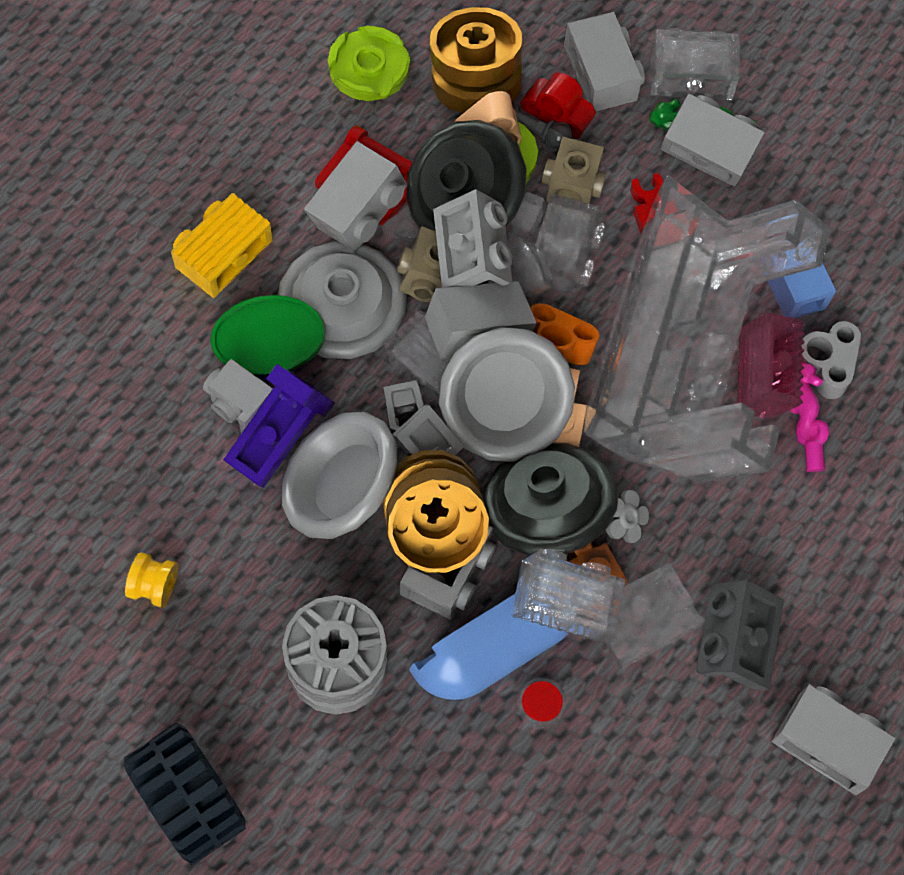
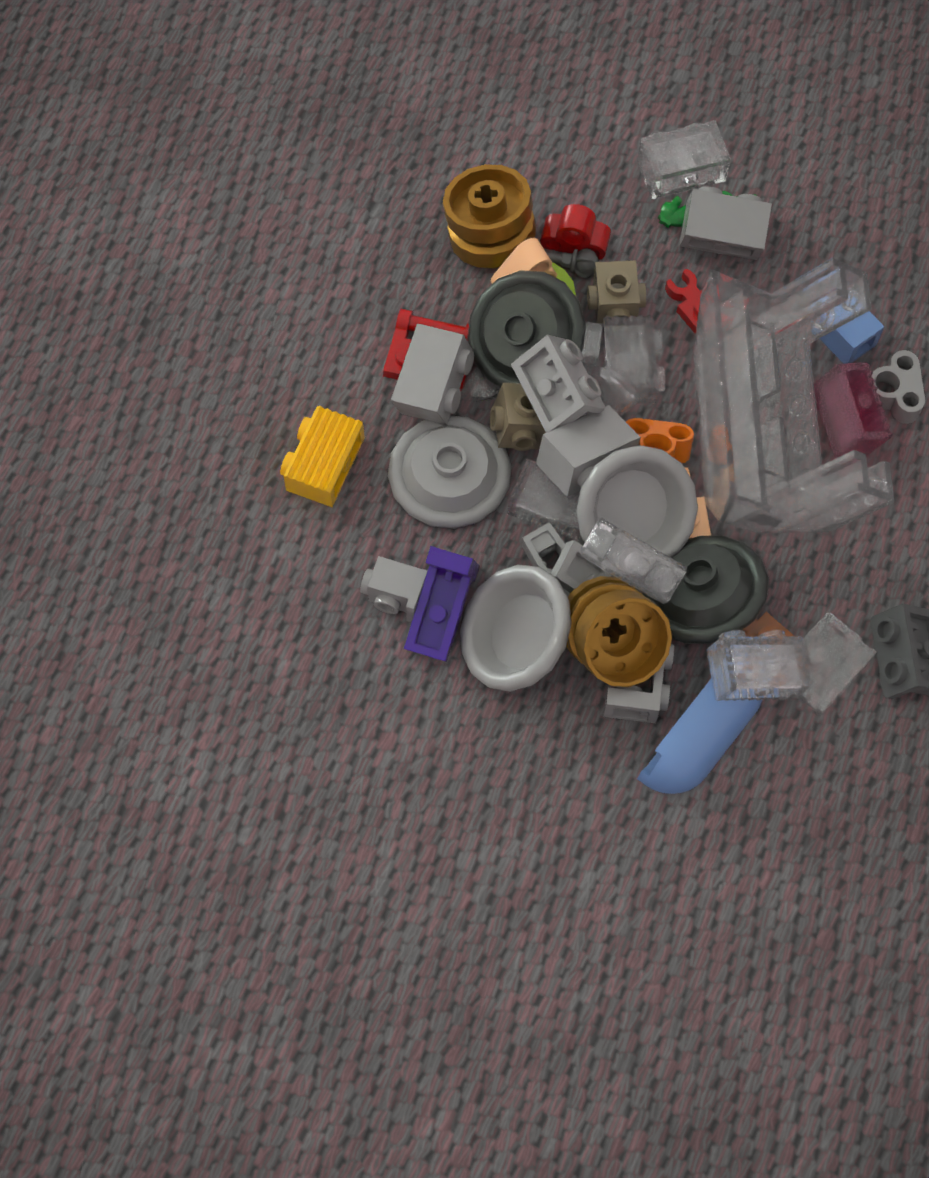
camera: 15 degrees left, 0 degrees up
(151, 579) = (383, 775): yellow wheel -> none
(184, 793) = (495, 945): black wheel -> none
(268, 333) = (398, 523): green piece -> none
(341, 682) = (560, 804): light grey wheel -> none
(369, 74) = (387, 260): lime tile -> none
(479, 445) = (633, 561): none -> clear brick
(541, 703) = (763, 768): red tile -> none
(603, 61) = (600, 180): light grey brick -> none
(628, 518) = (778, 583): light grey plant -> none
(809, 431) = (902, 456): dark pink animal -> none

